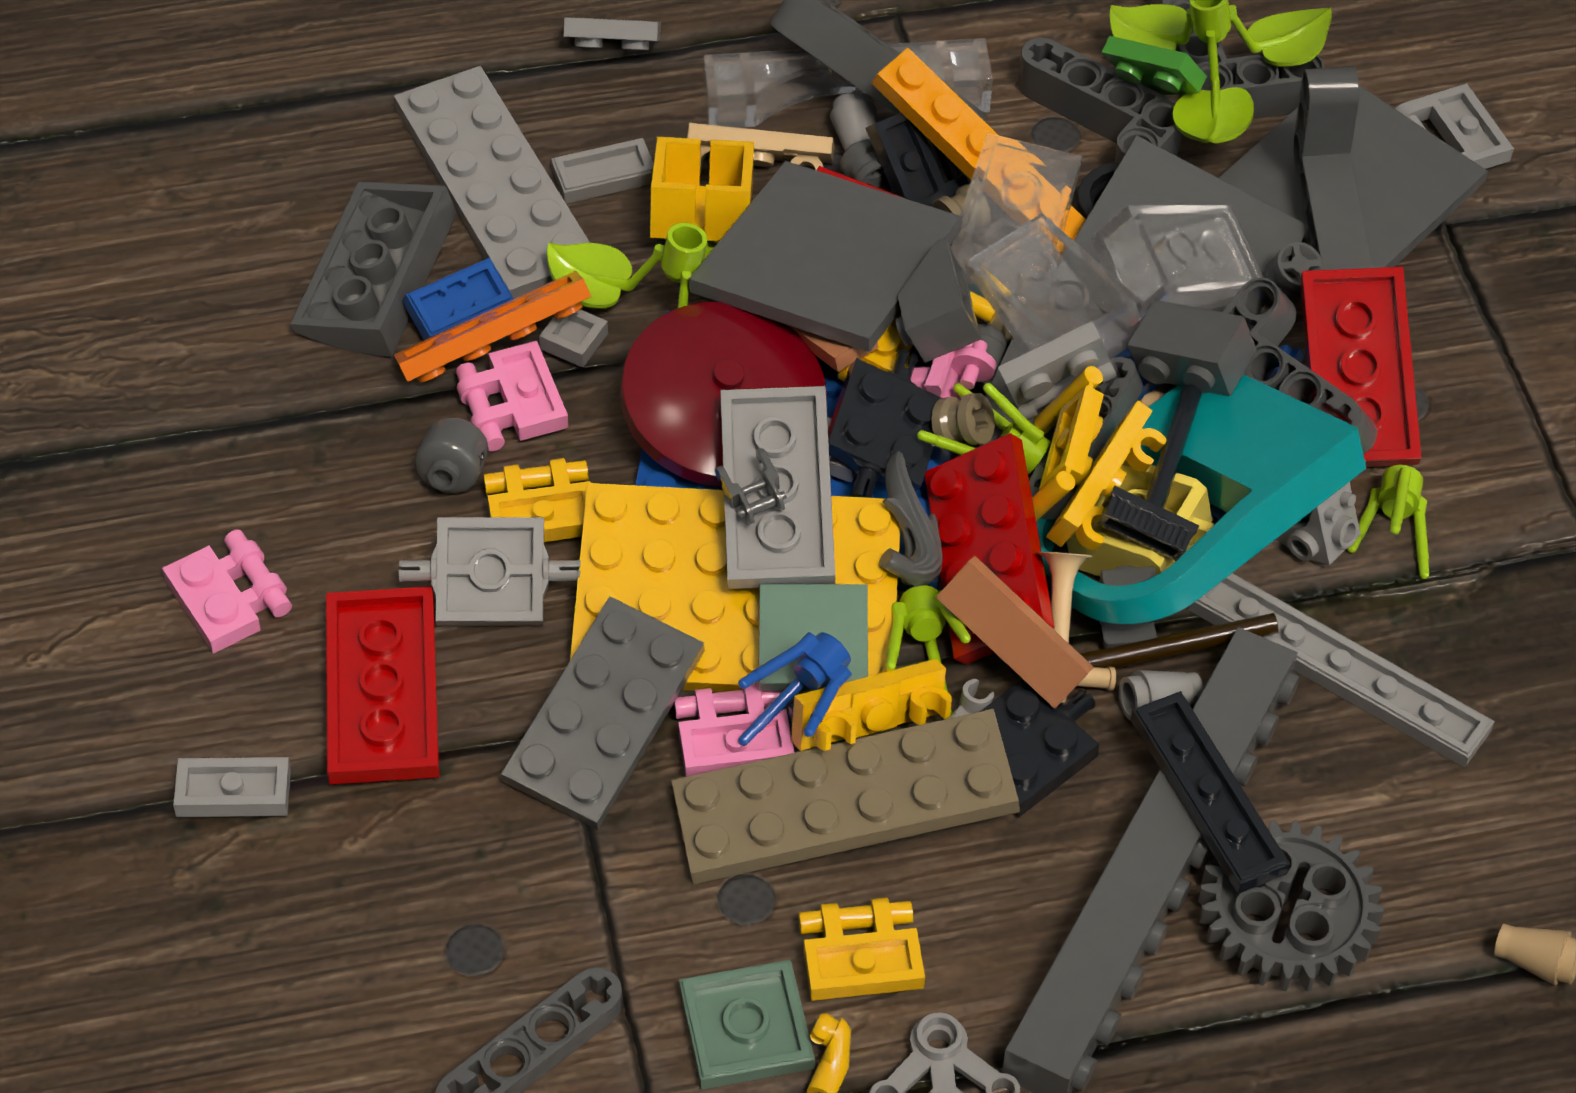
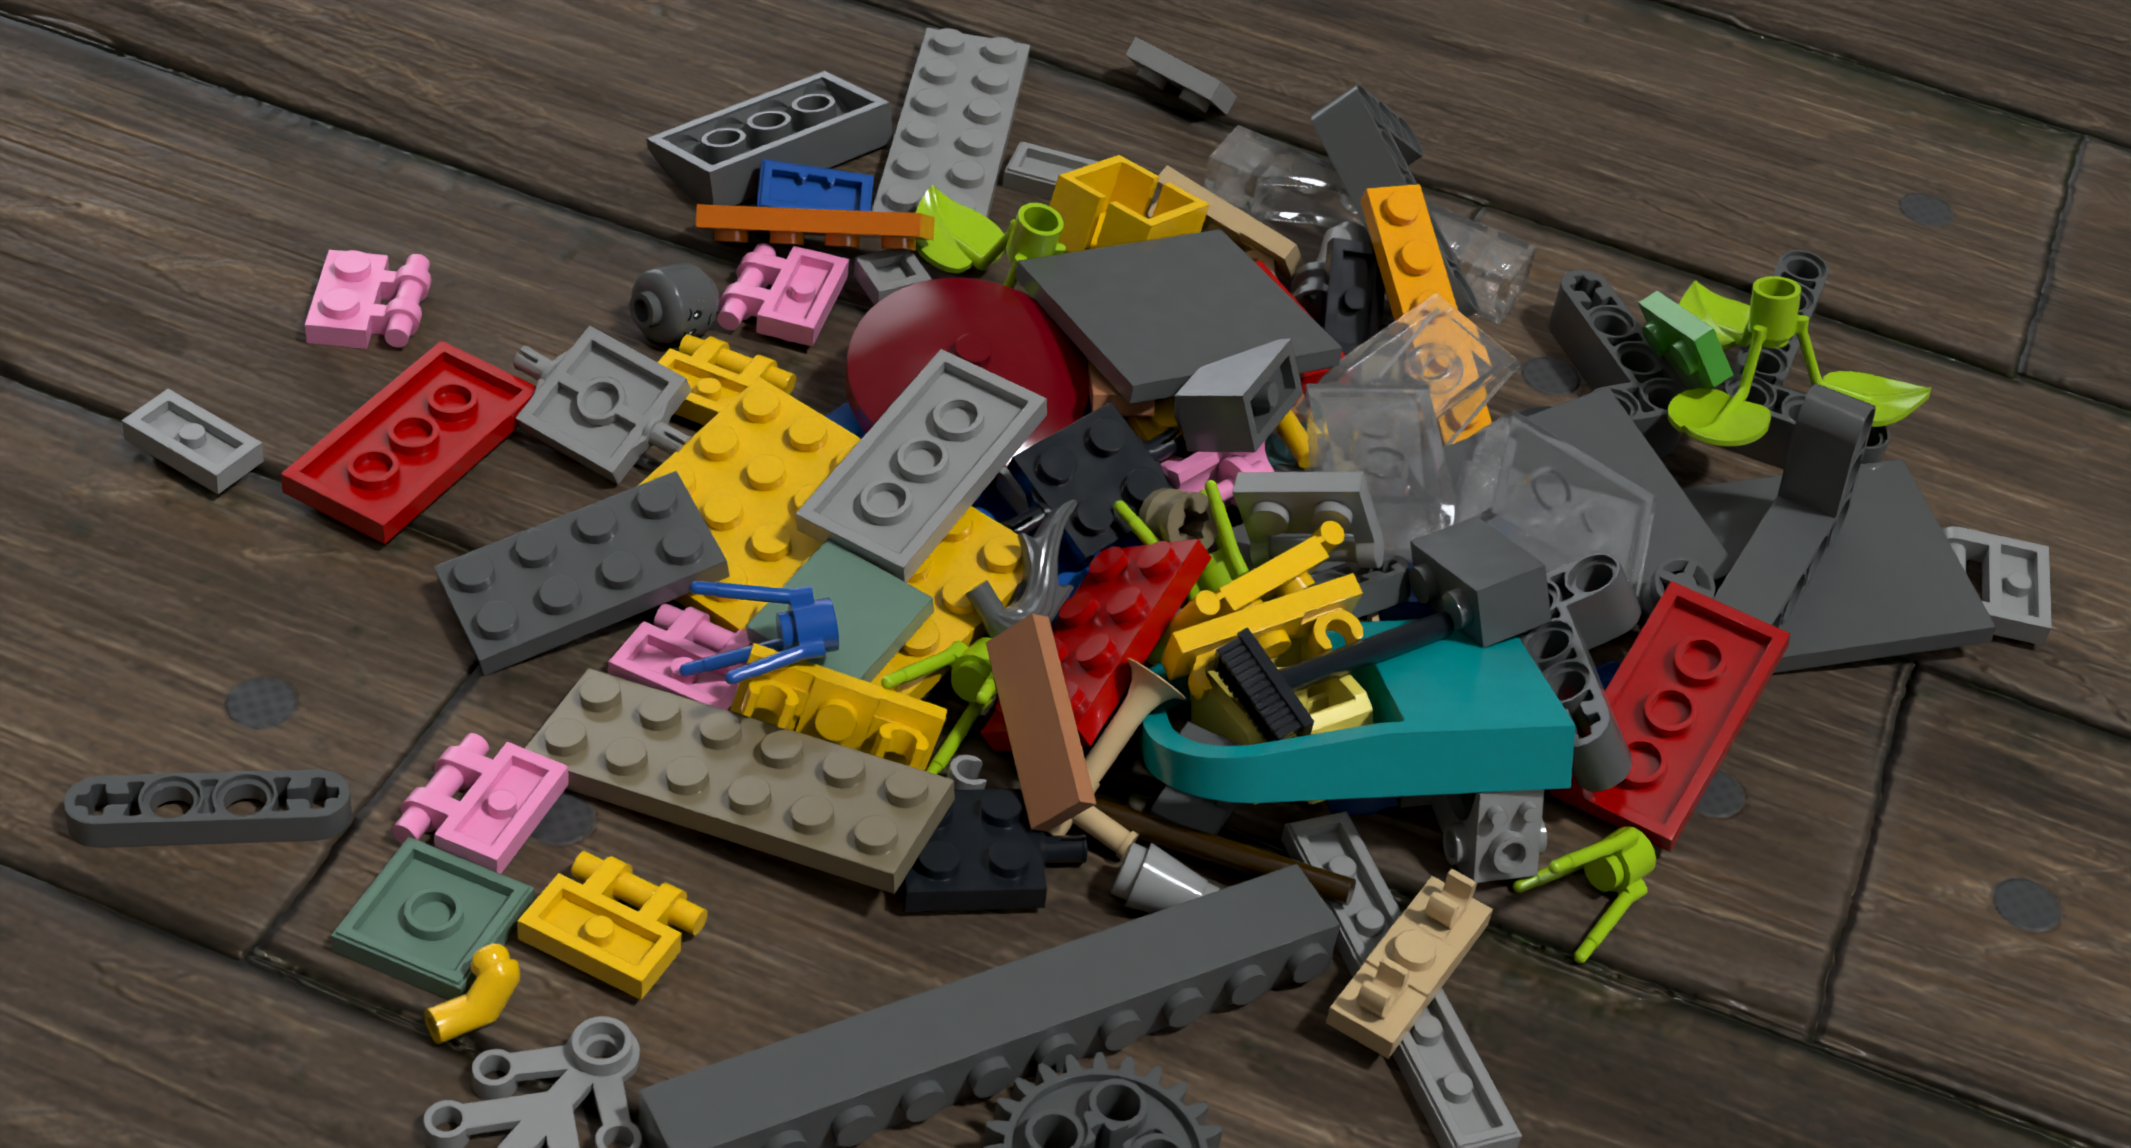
camera: 30 degrees right, 10 degrees down
(717, 920) = (496, 813): none -> bright pink plate
(736, 494) = (910, 446): dark grey piece -> none
(1209, 792) = (1103, 991): black tile -> none
(1348, 649) = (1410, 964): none -> tan plate

